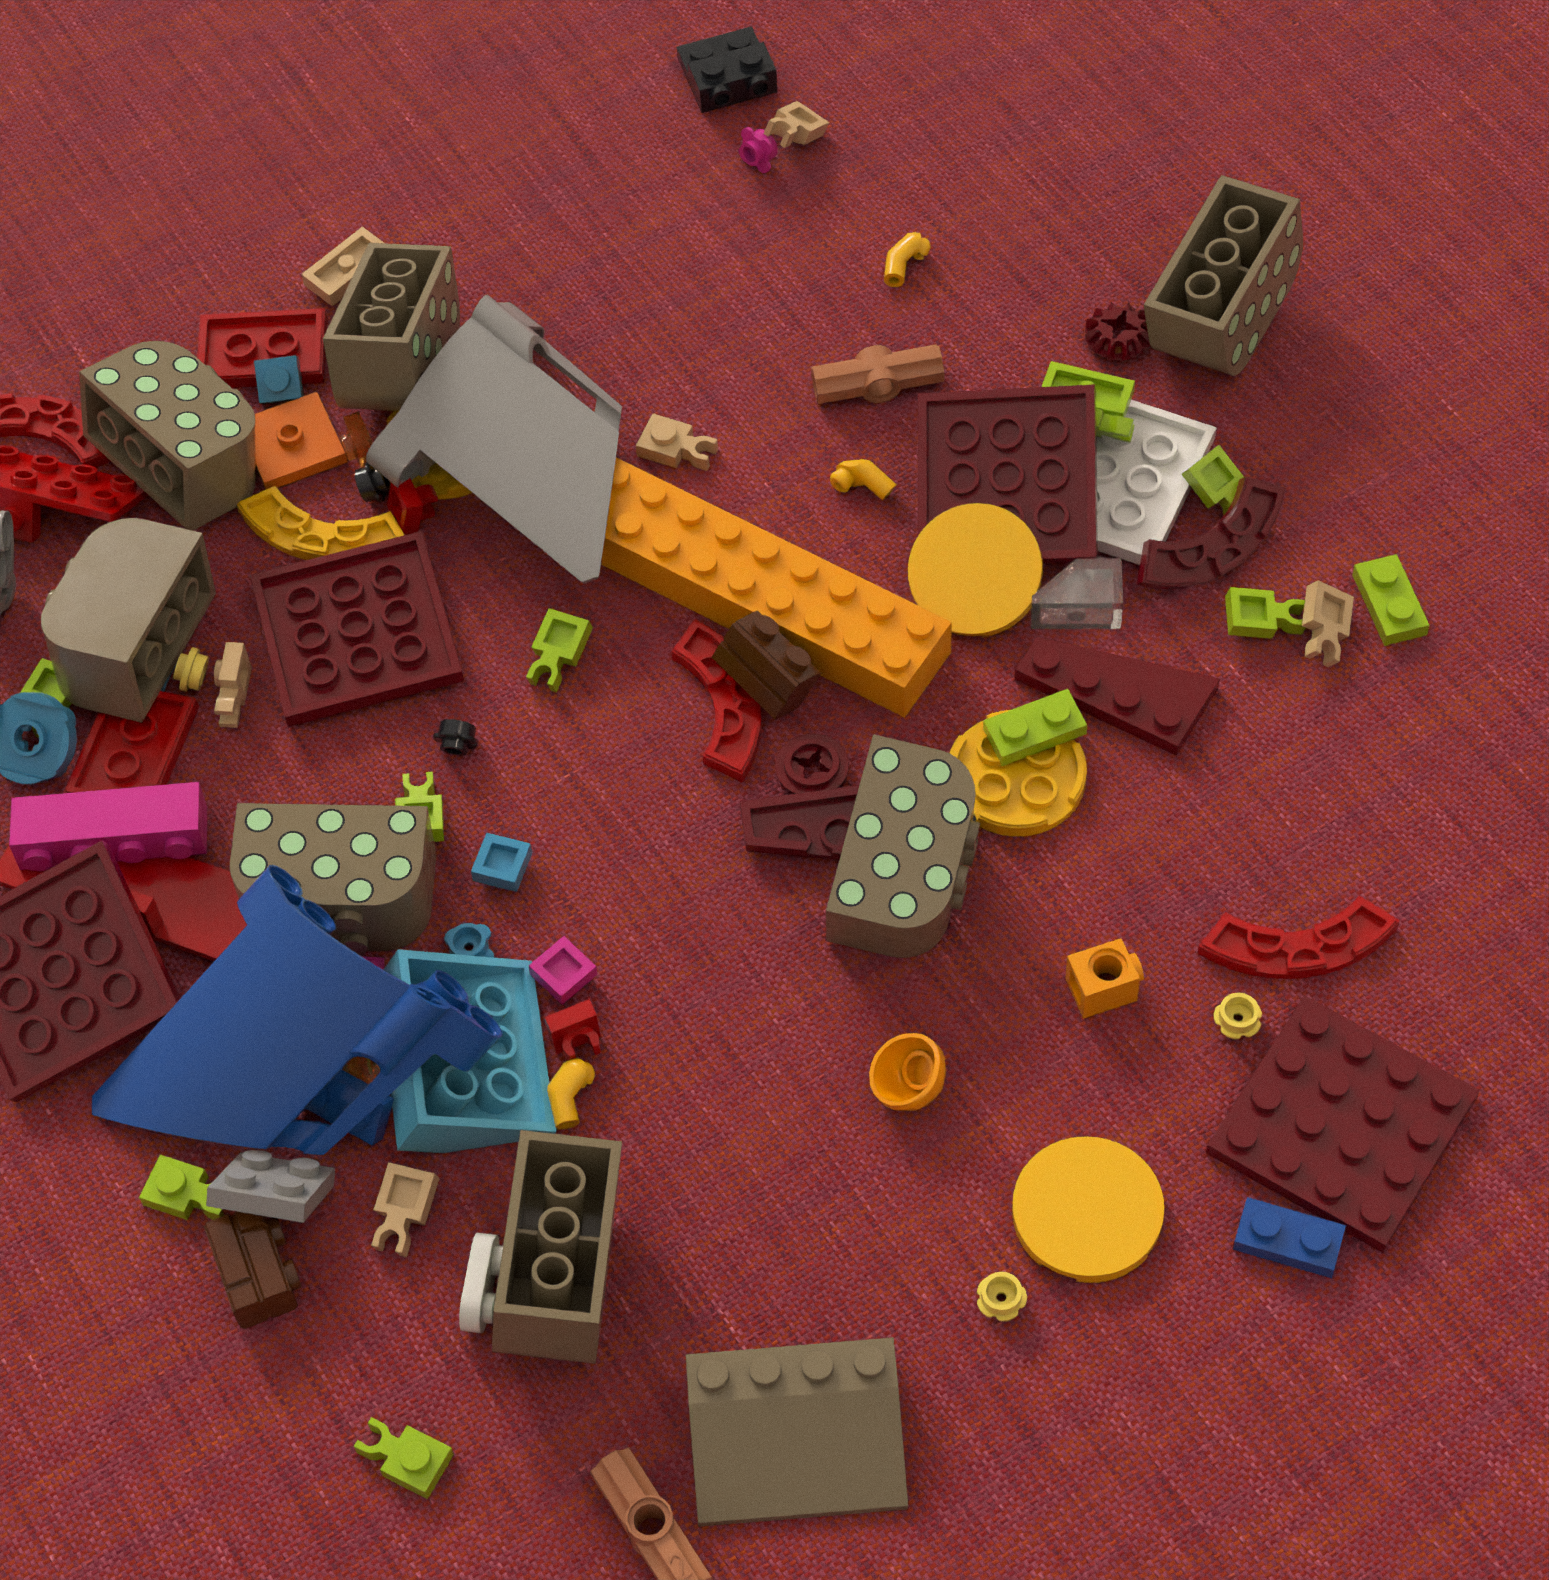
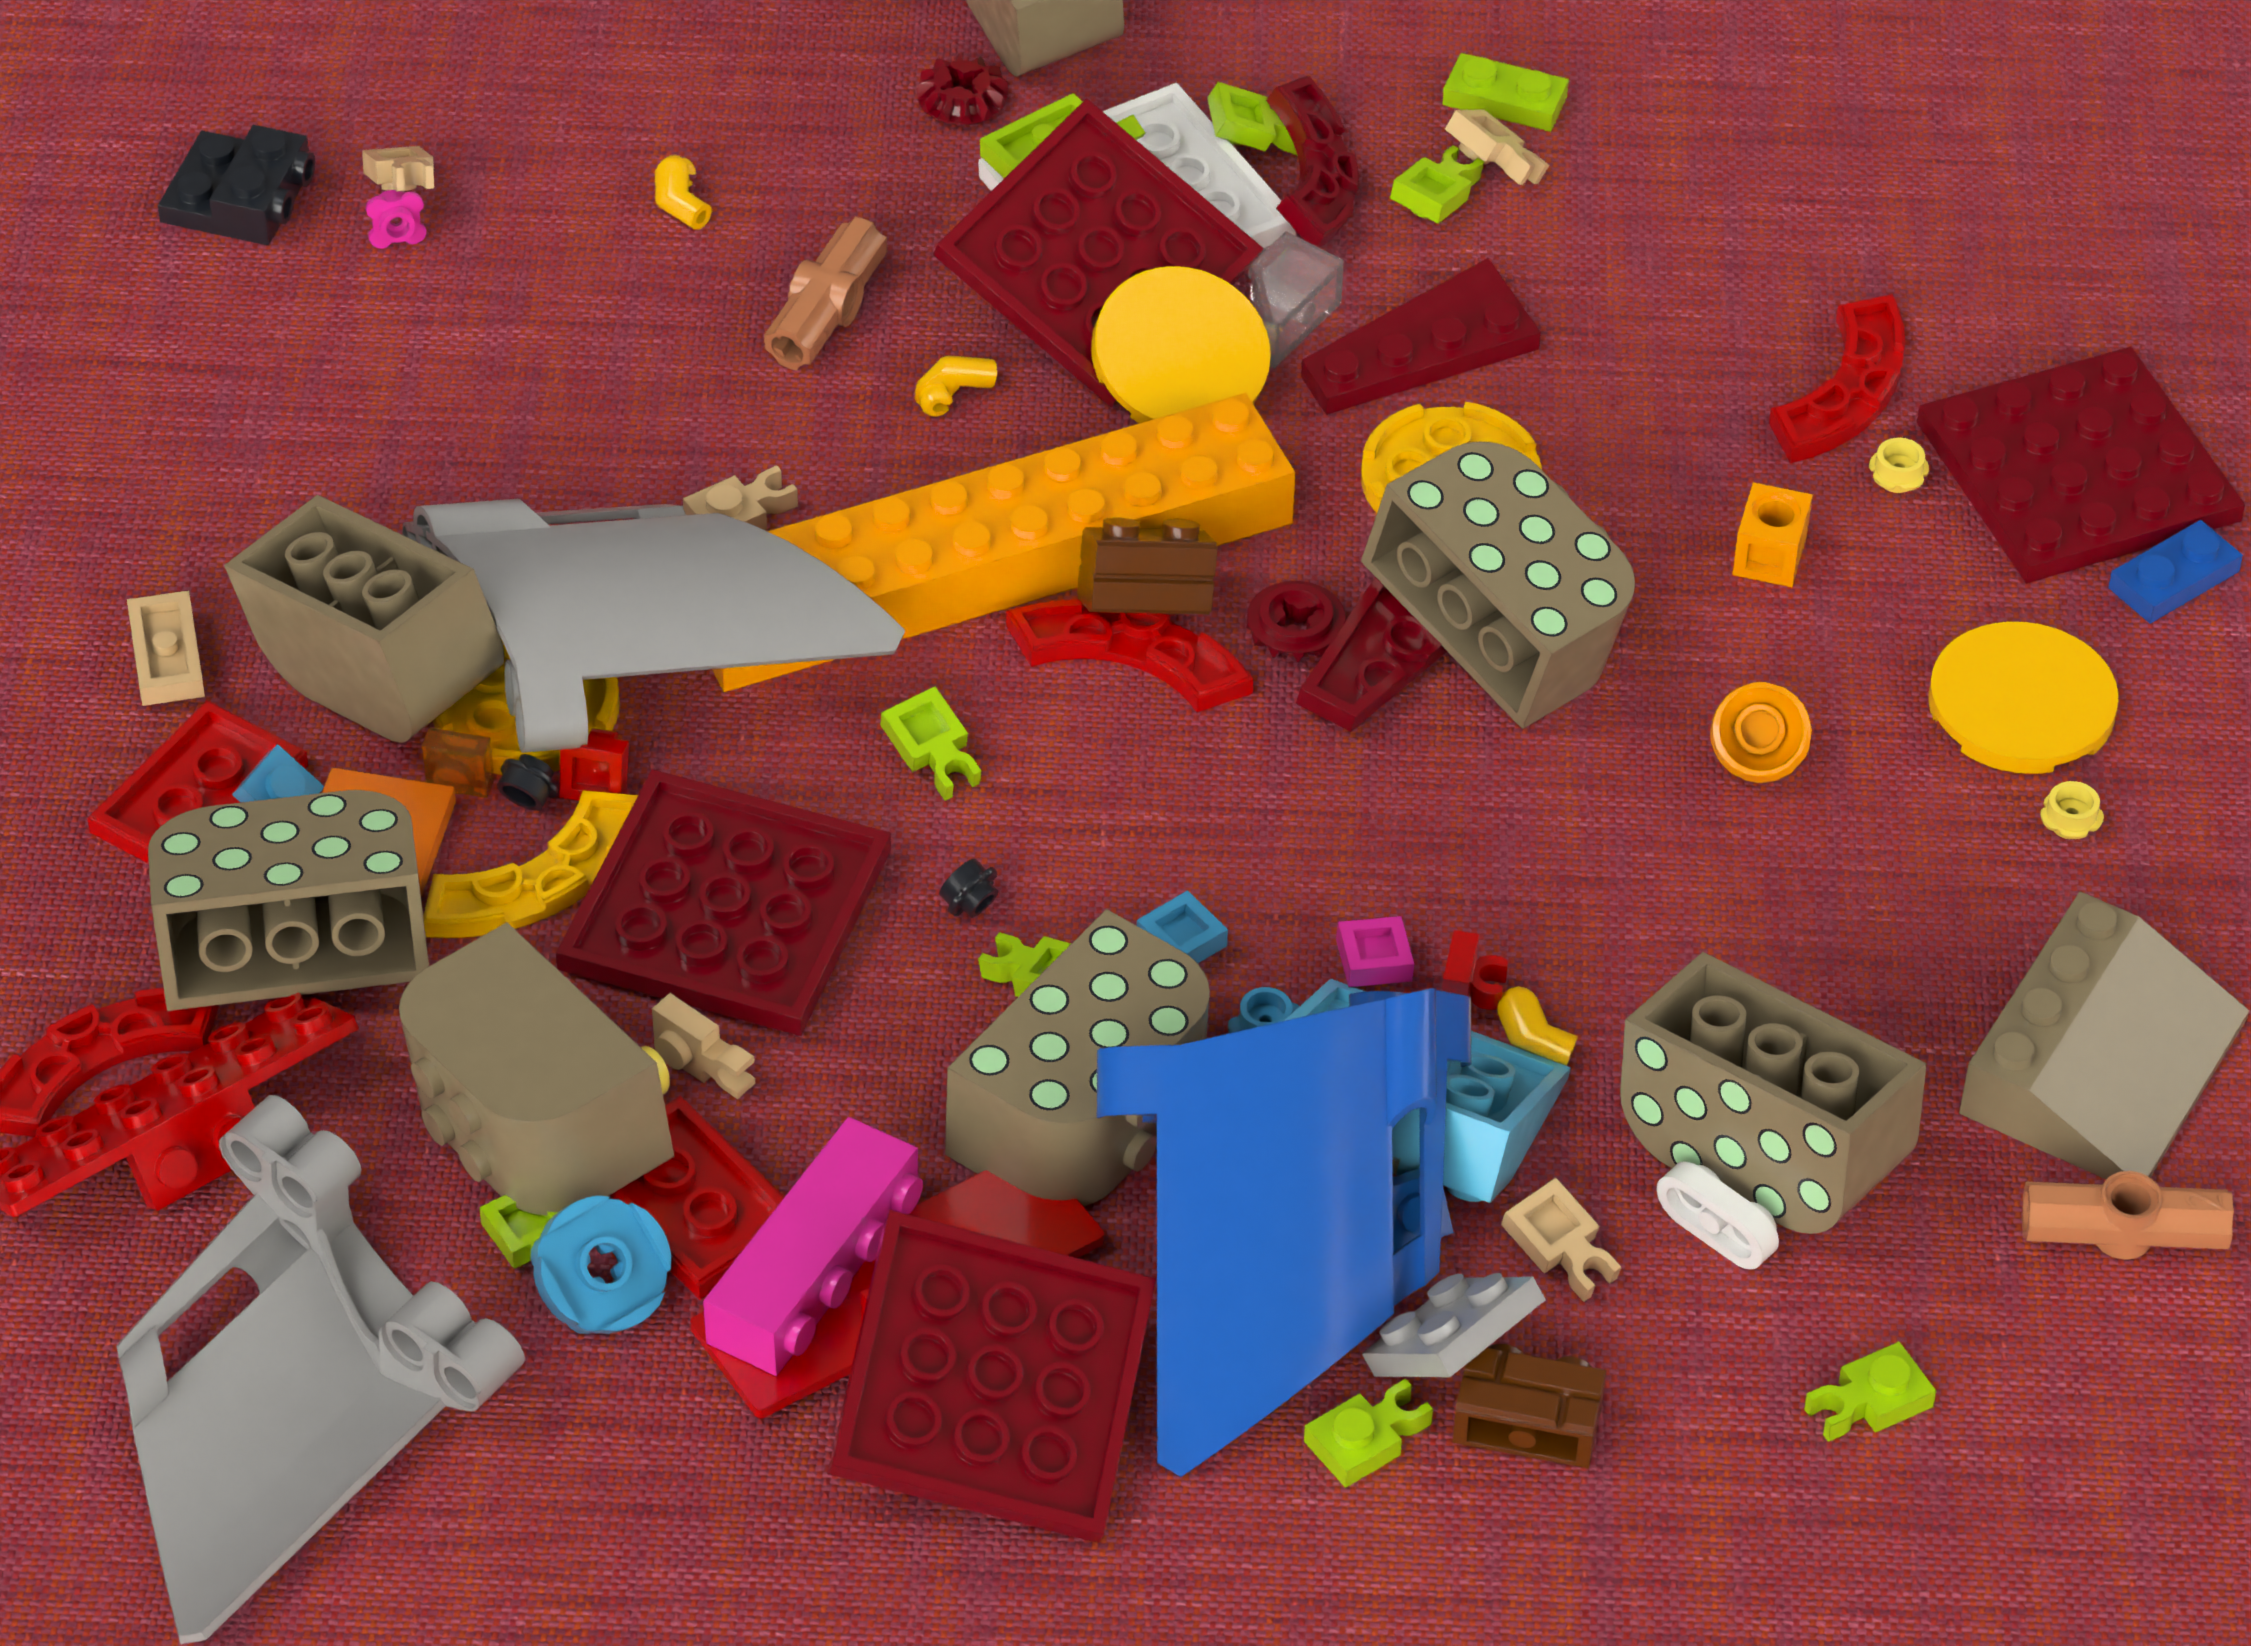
camera: 60 degrees left, 10 degrees down
(1035, 727) = (1421, 415): lime plate -> none

